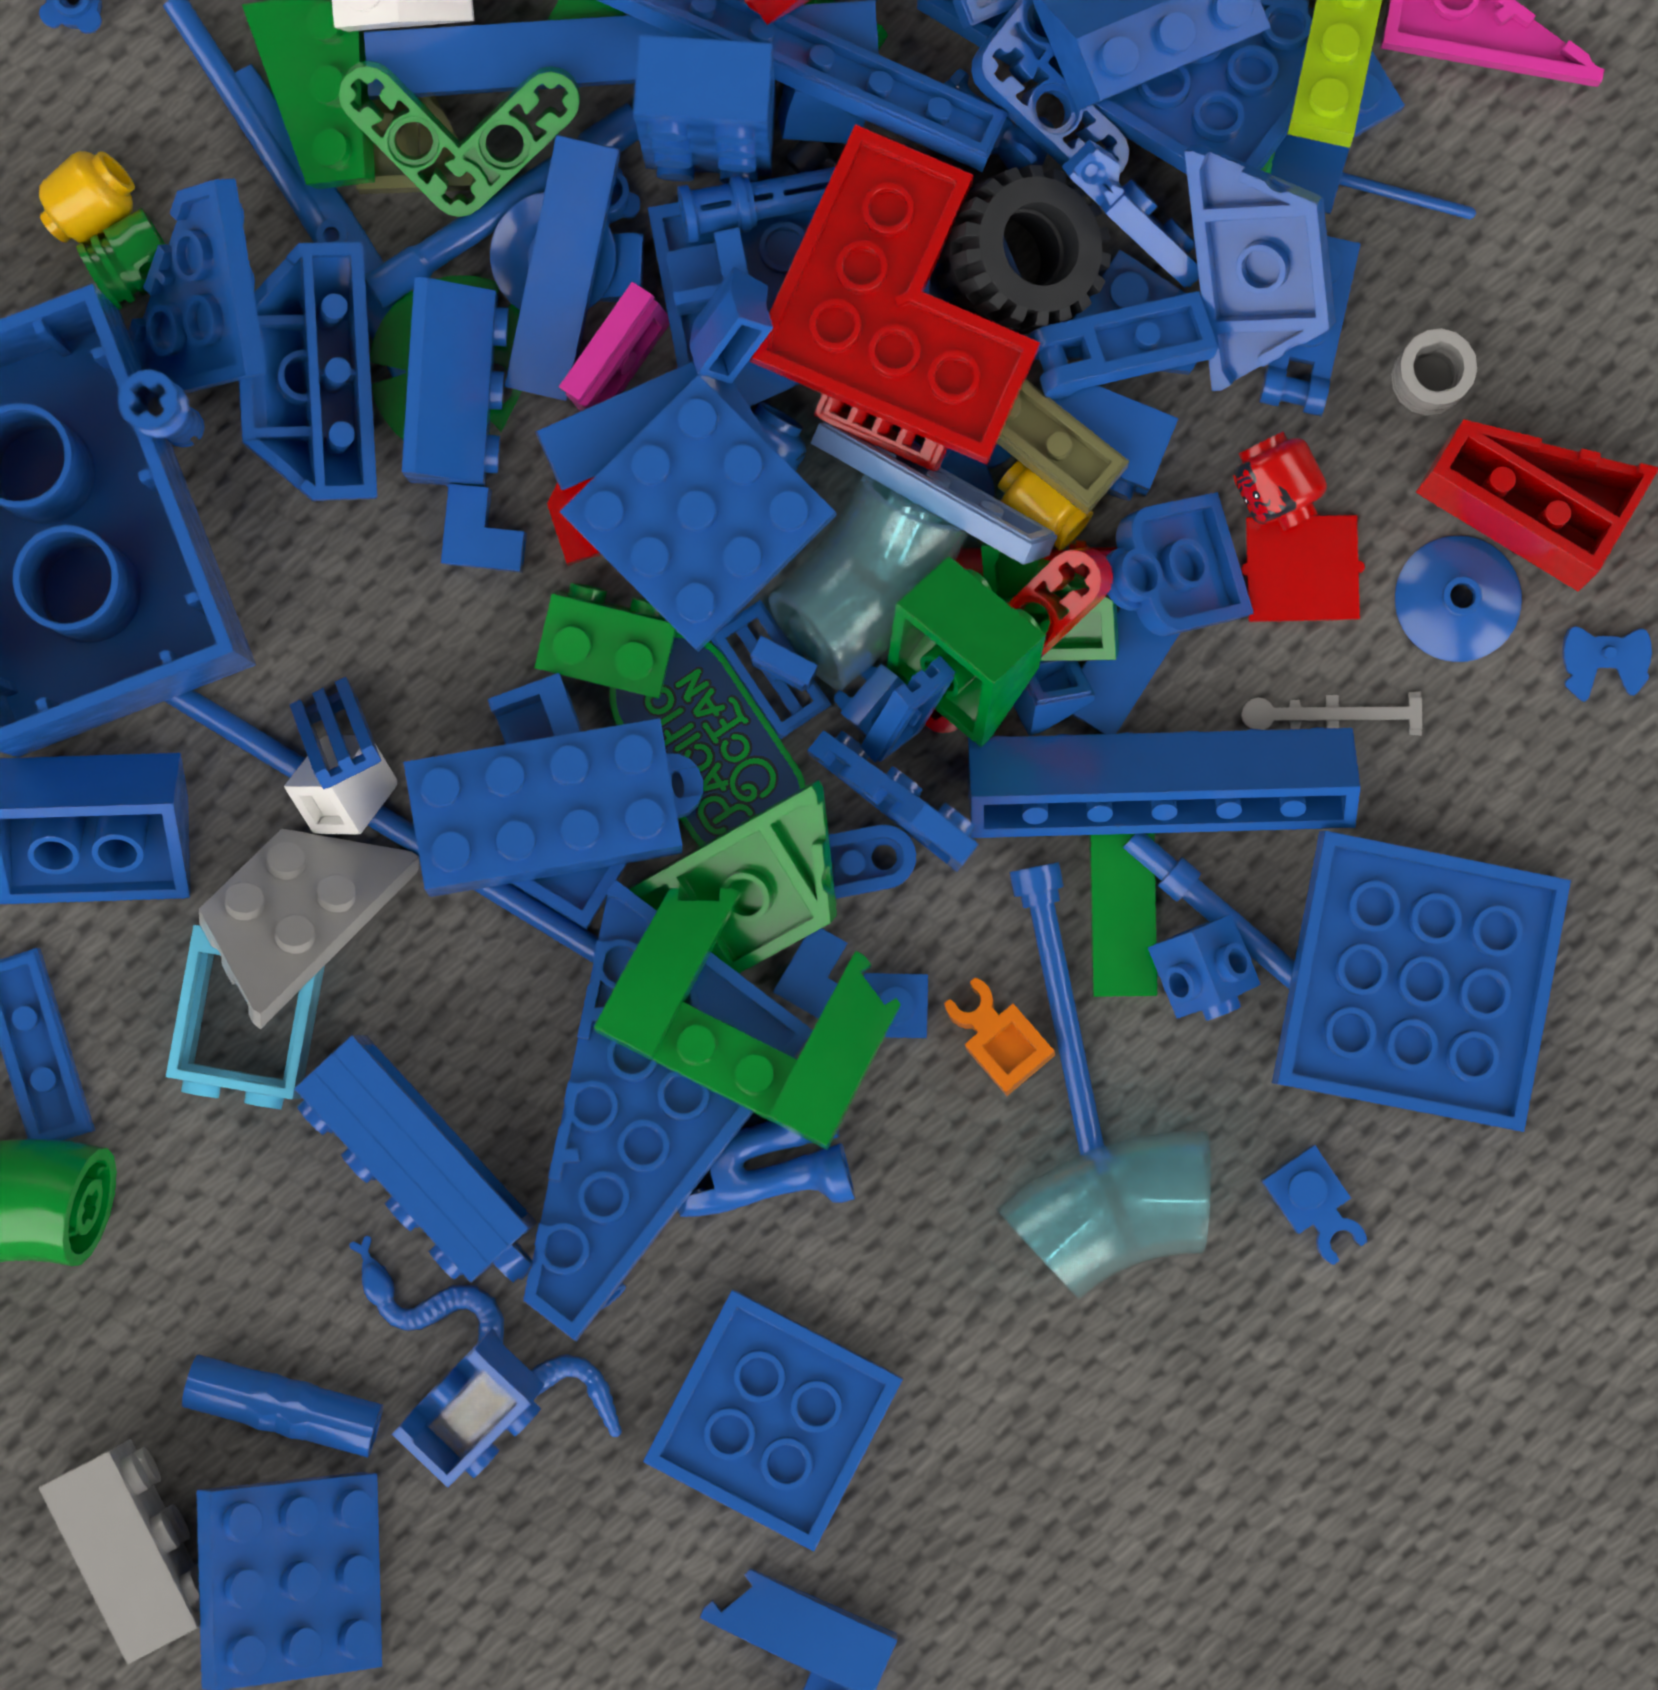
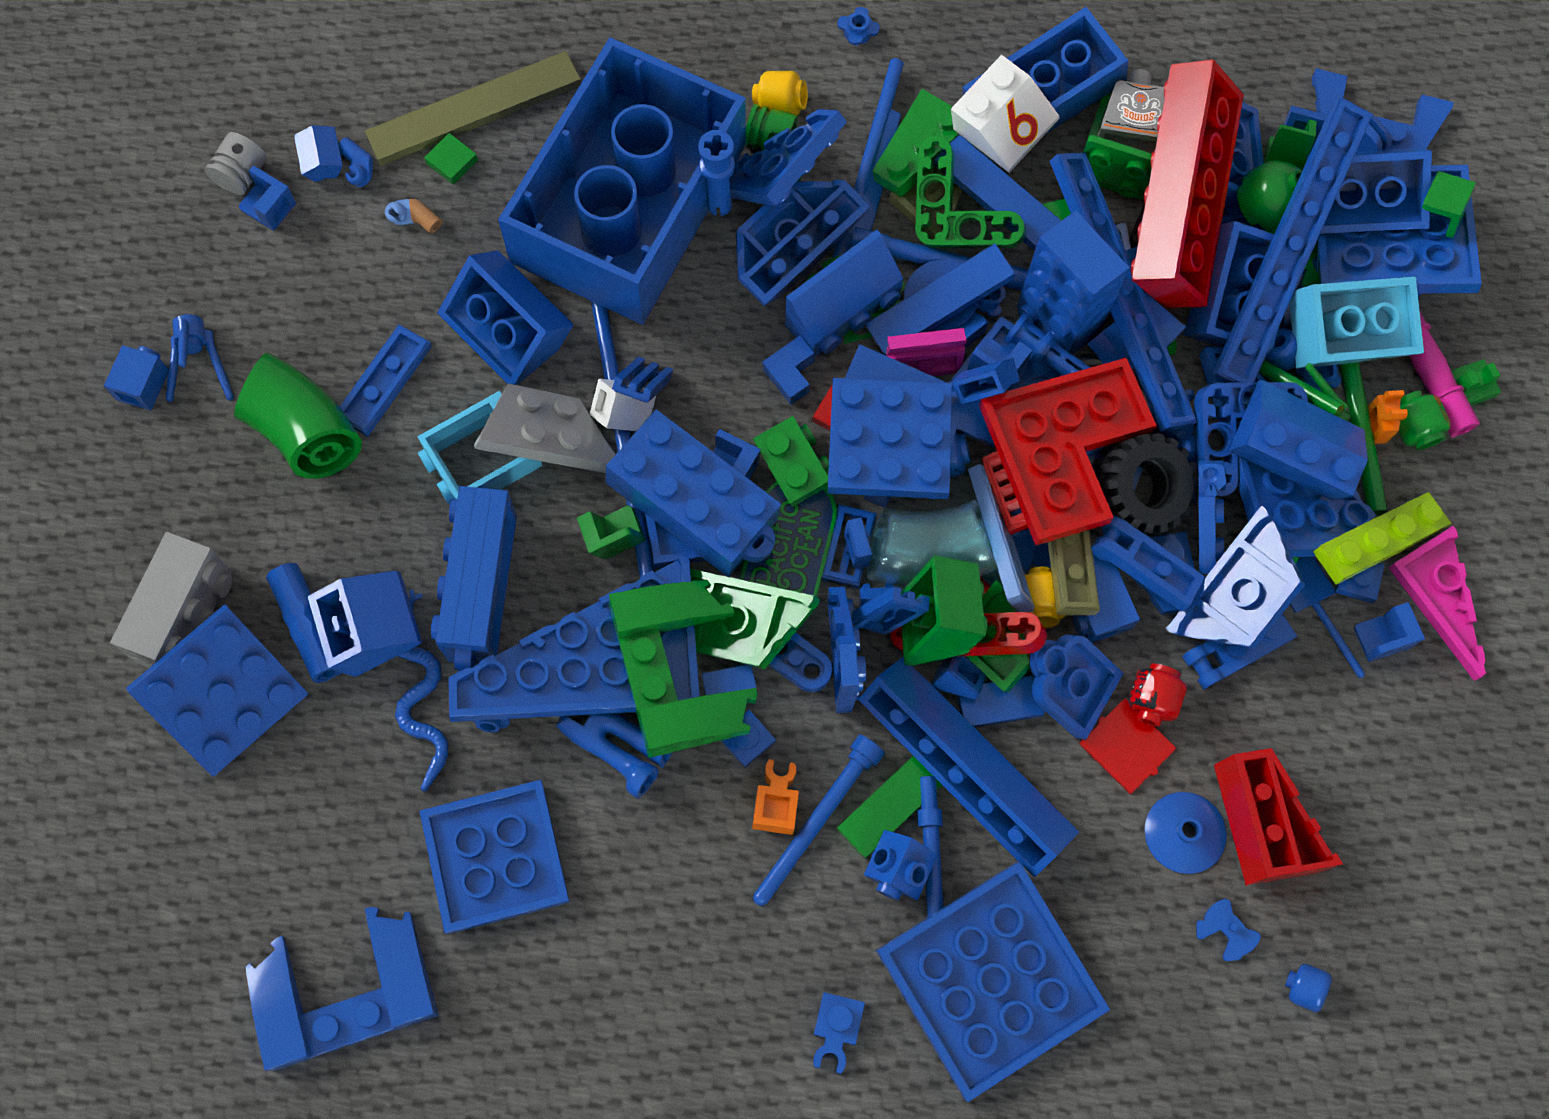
camera: 40 degrees right, 15 degrees down
(352, 1336) = (364, 621): none -> blue slope
(469, 1410) = (375, 707): blue window -> none
(496, 942) = (611, 533): none -> green panel
(1117, 1207) = (744, 926): clear light blue brick -> none
(1260, 713) = (1045, 786): light grey piece -> none
(1434, 372) = (1276, 720): light grey piece -> none
(1454, 133) = (1389, 633): none -> blue panel

